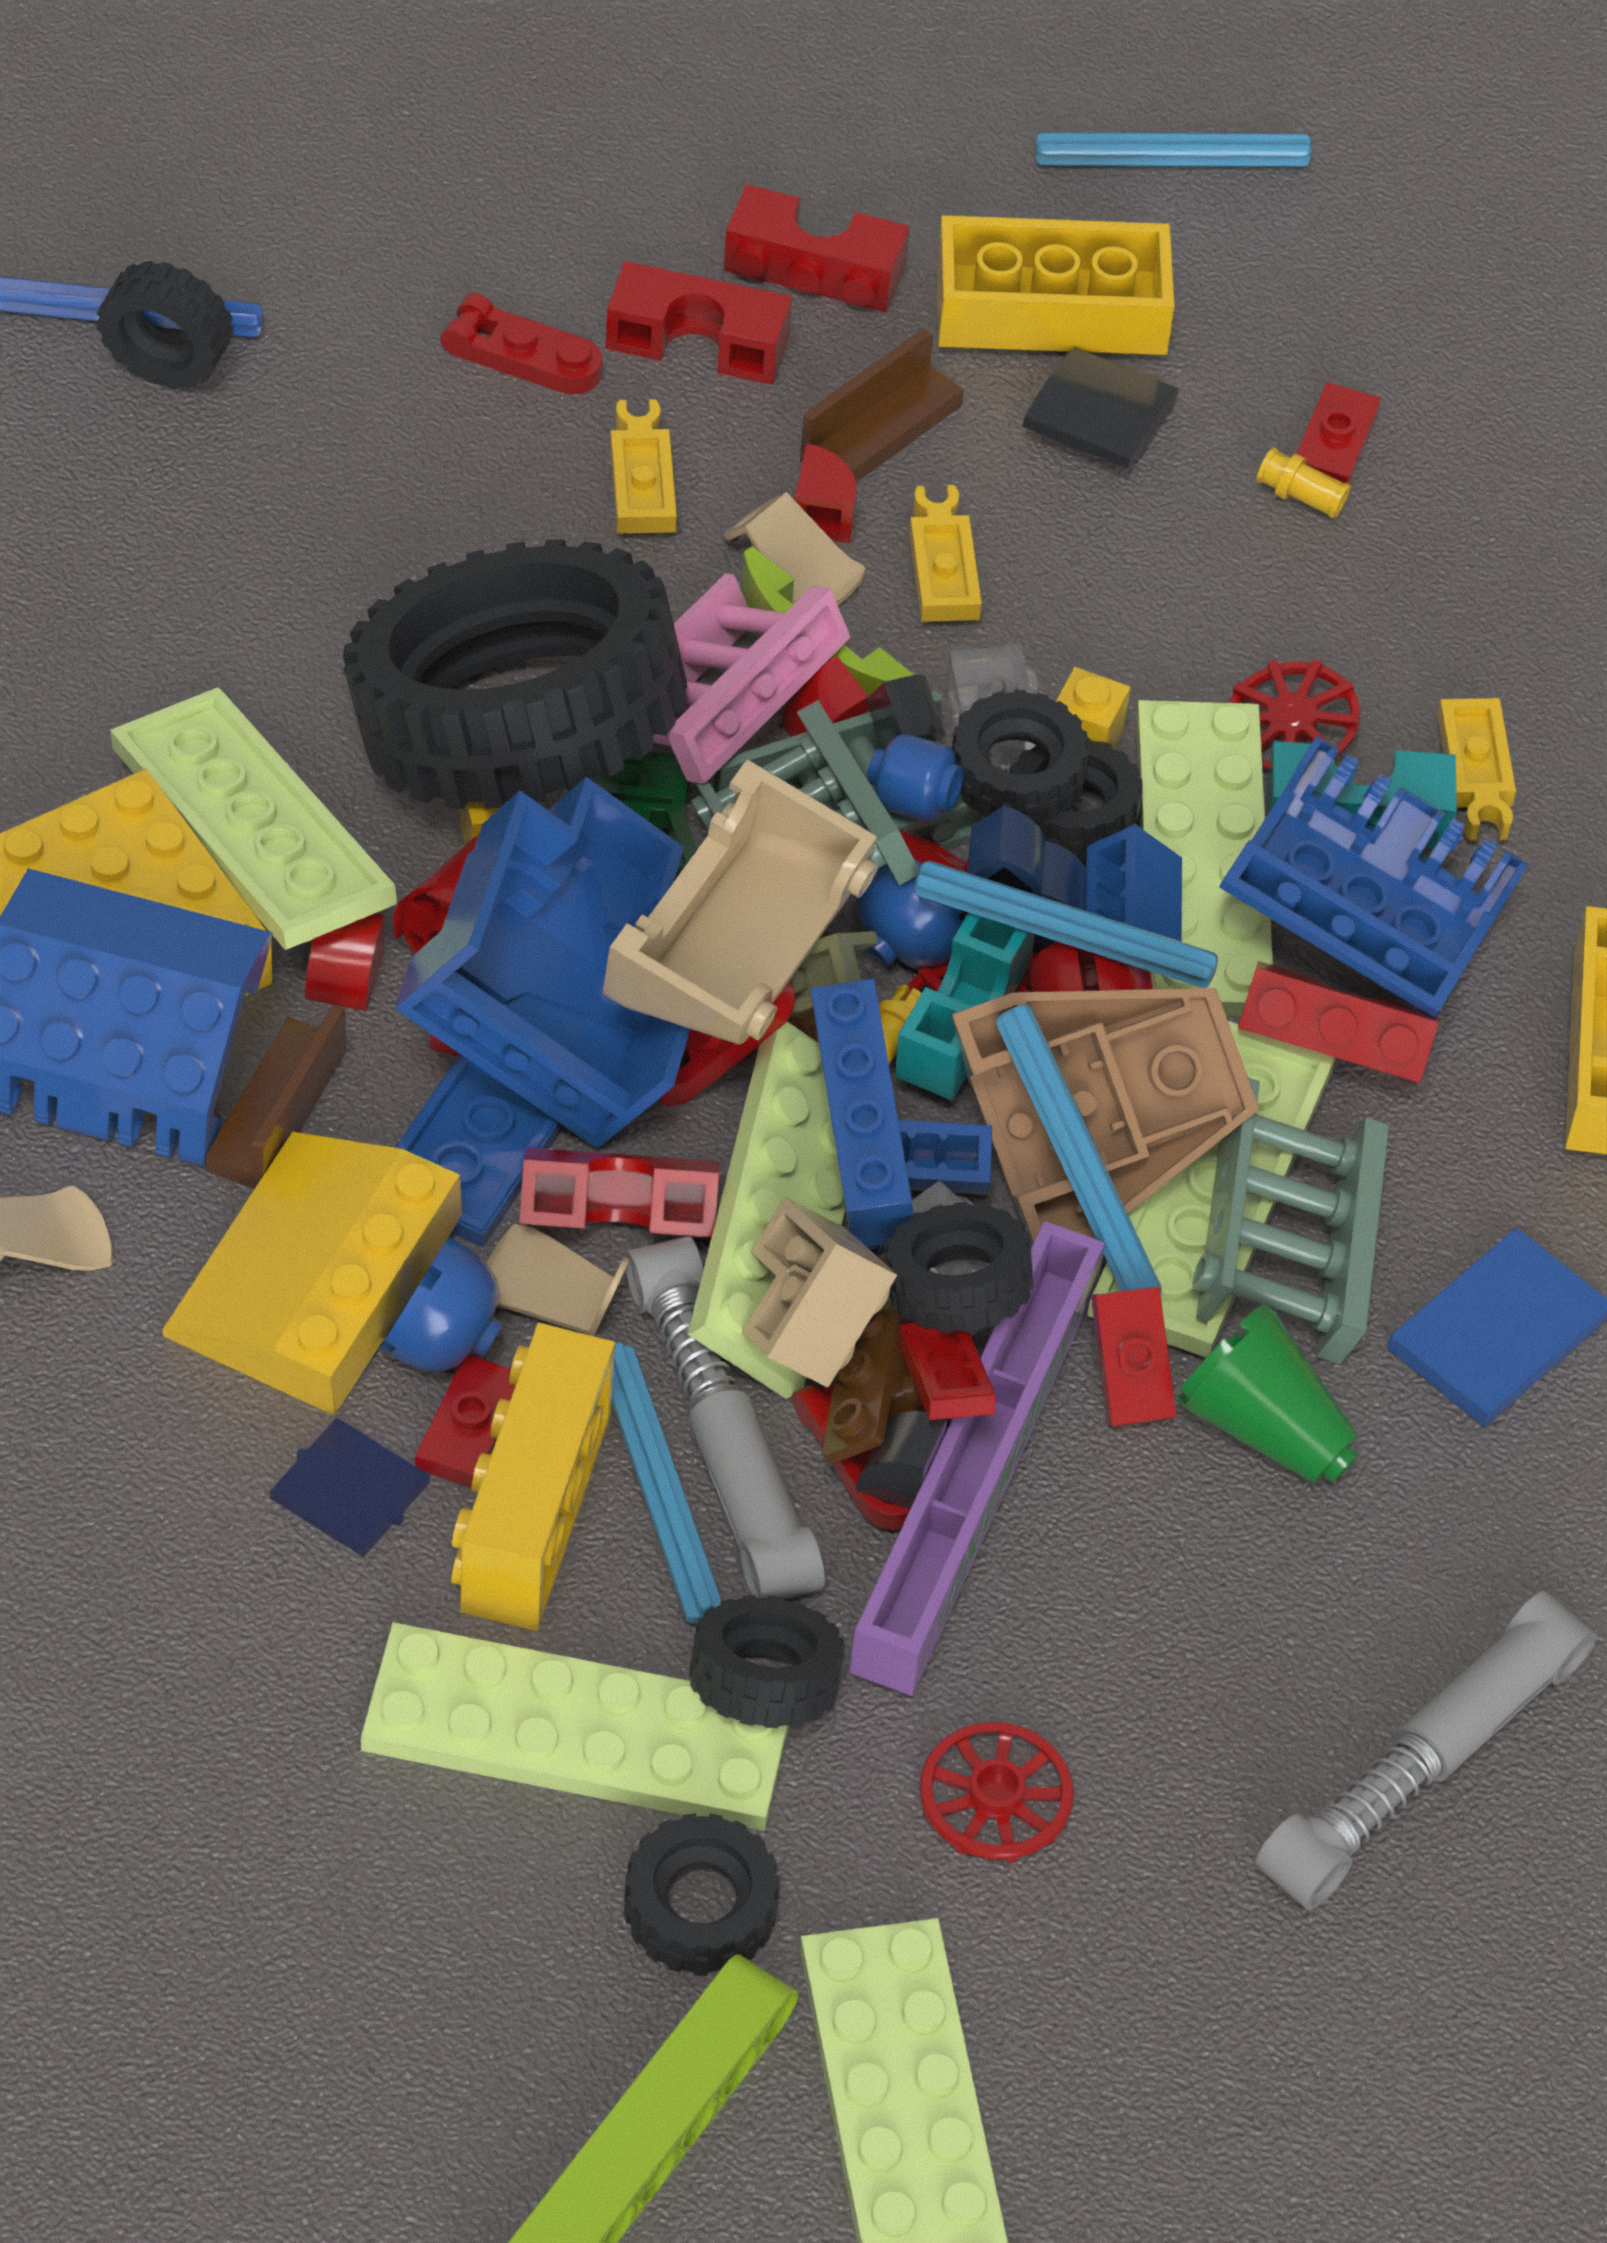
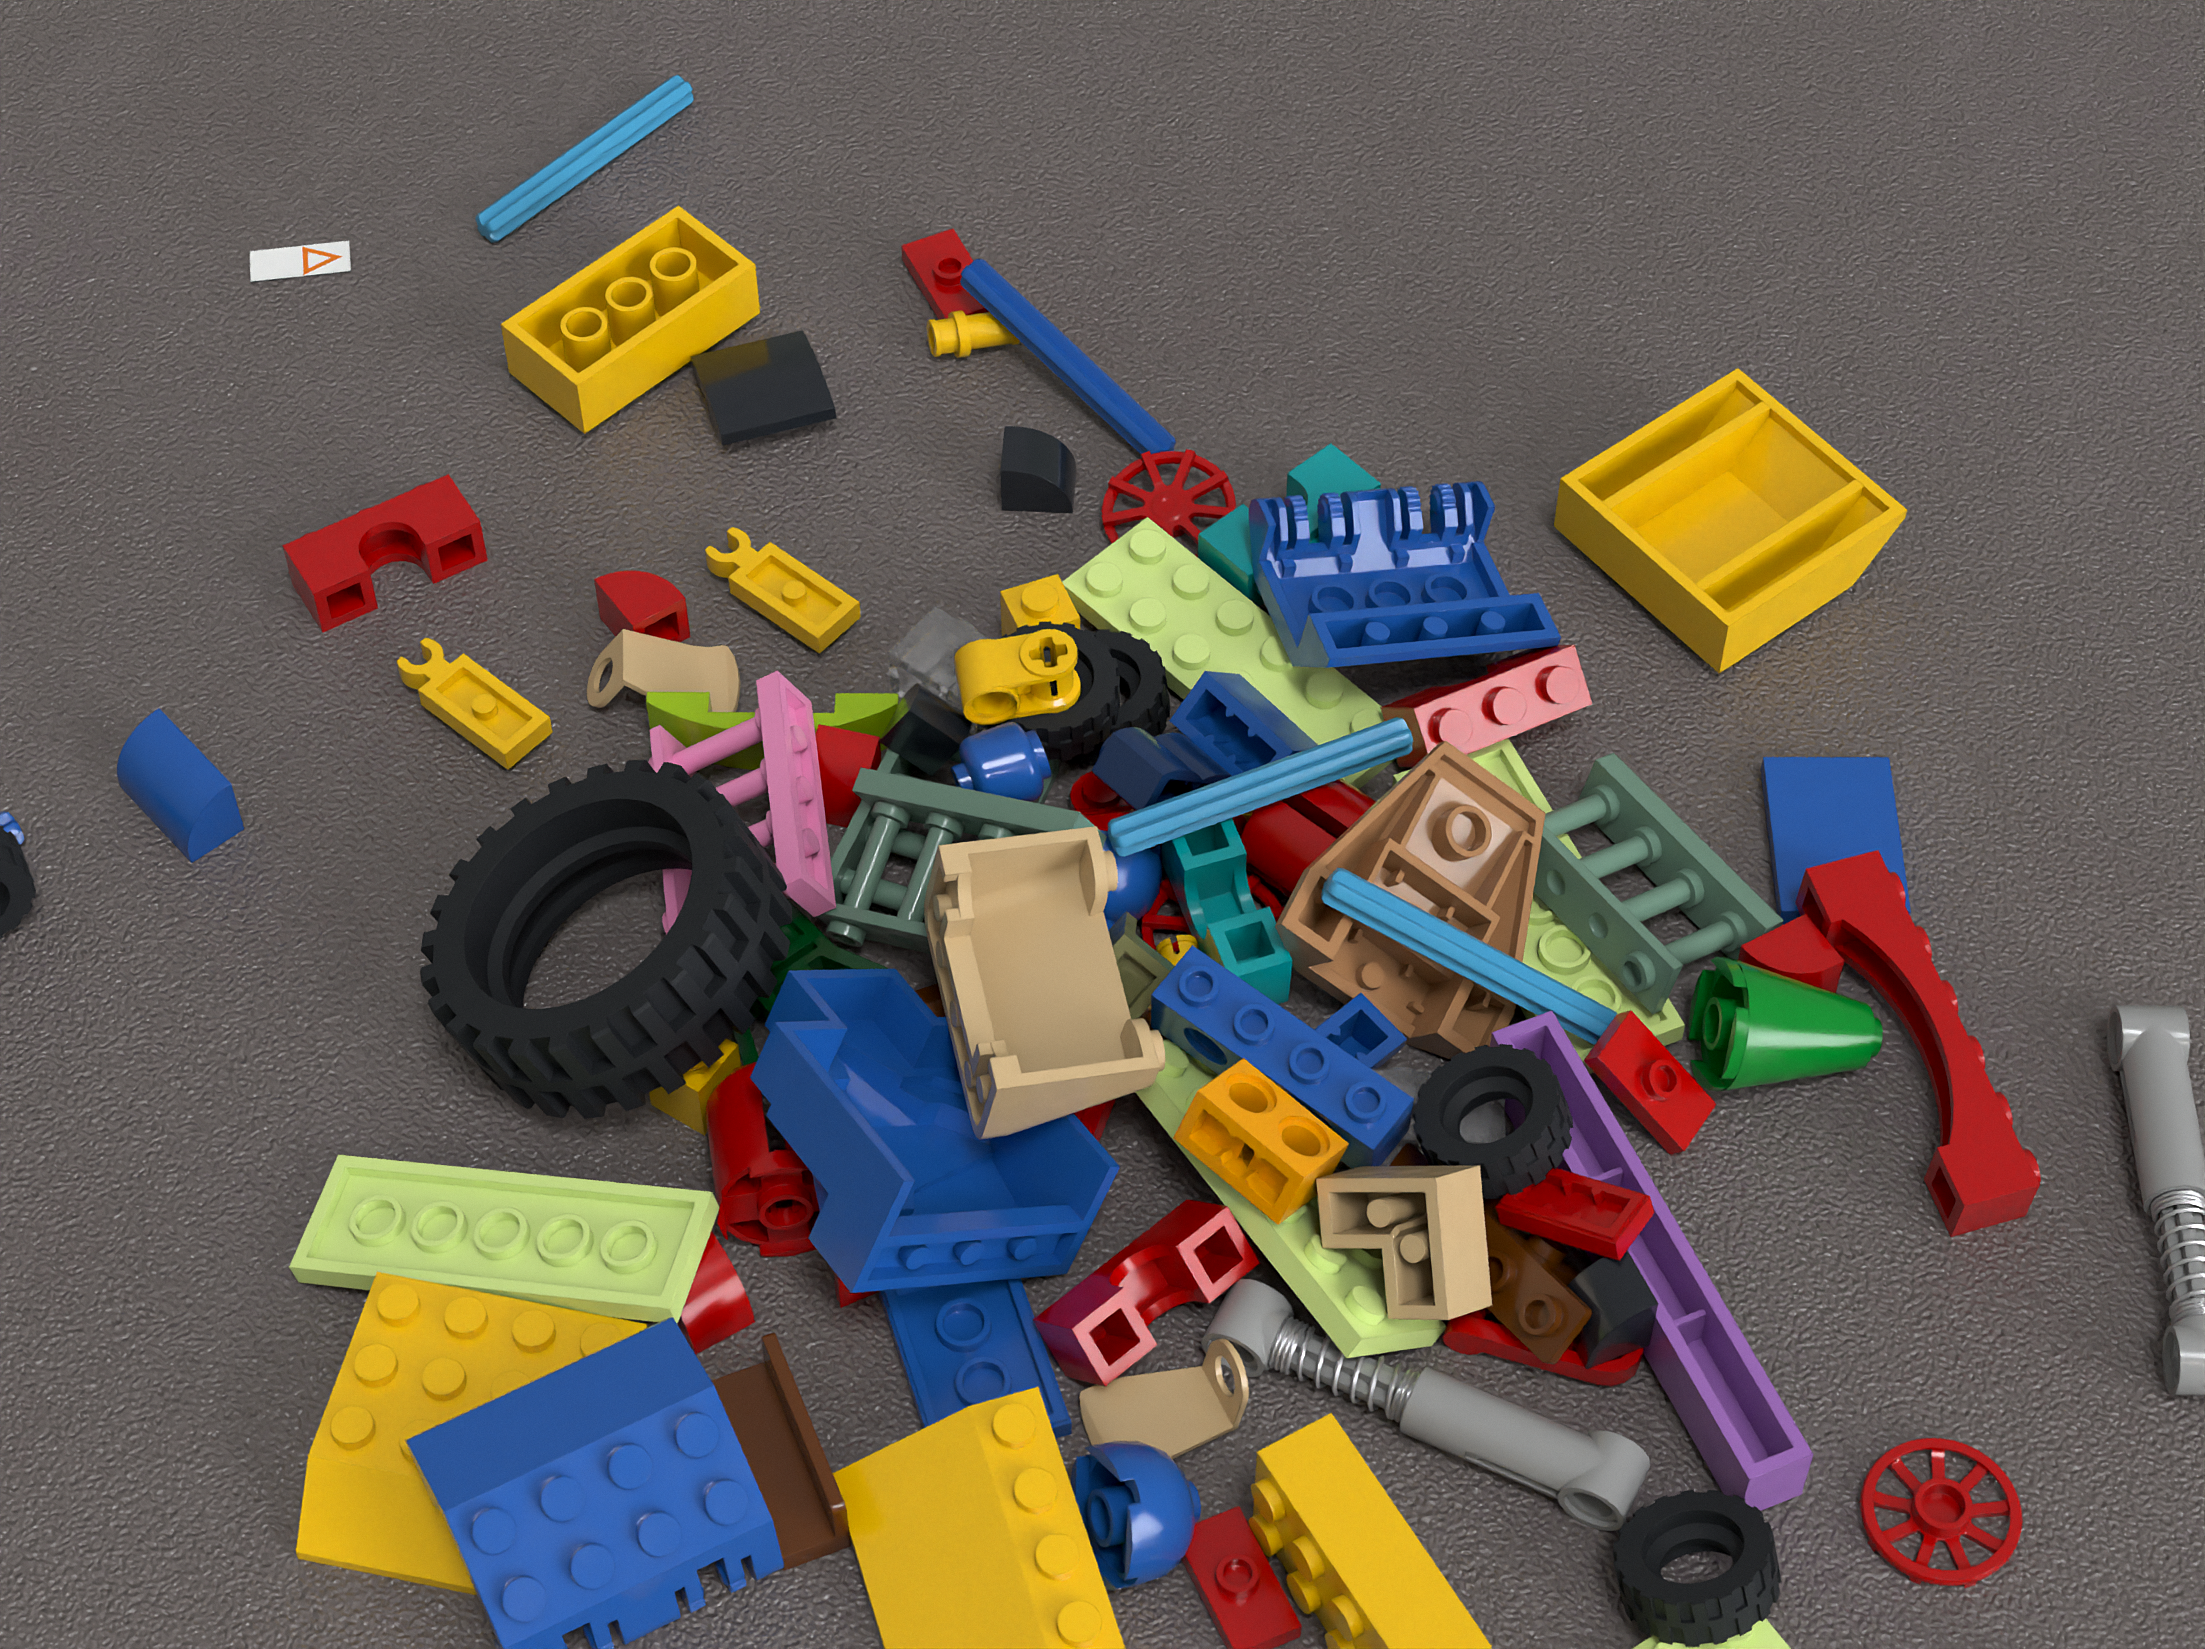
camera: 40 degrees left, 0 degrees up
(384, 375) = (178, 787): none -> blue brick
(522, 347) = (259, 680): red plate -> none
(661, 1487) = (1468, 1515): dark azure axle -> none
(779, 1141) = (1260, 1140): none -> light orange brick
(851, 267) = (374, 449): red arch -> none
(883, 407) = (607, 513): reddish brown panel -> none
(885, 78) = (300, 261): none -> white sticker
(980, 712) = (1012, 679): none -> yellow piece
(1224, 614) = (1036, 472): none -> black brick
(1304, 1604) = (1980, 1167): none -> red arch
(1339, 550) = (1065, 359): none -> blue axle
(1347, 1367) = (1796, 952): none -> red brick
(1484, 771) = (1311, 422): yellow plate -> none

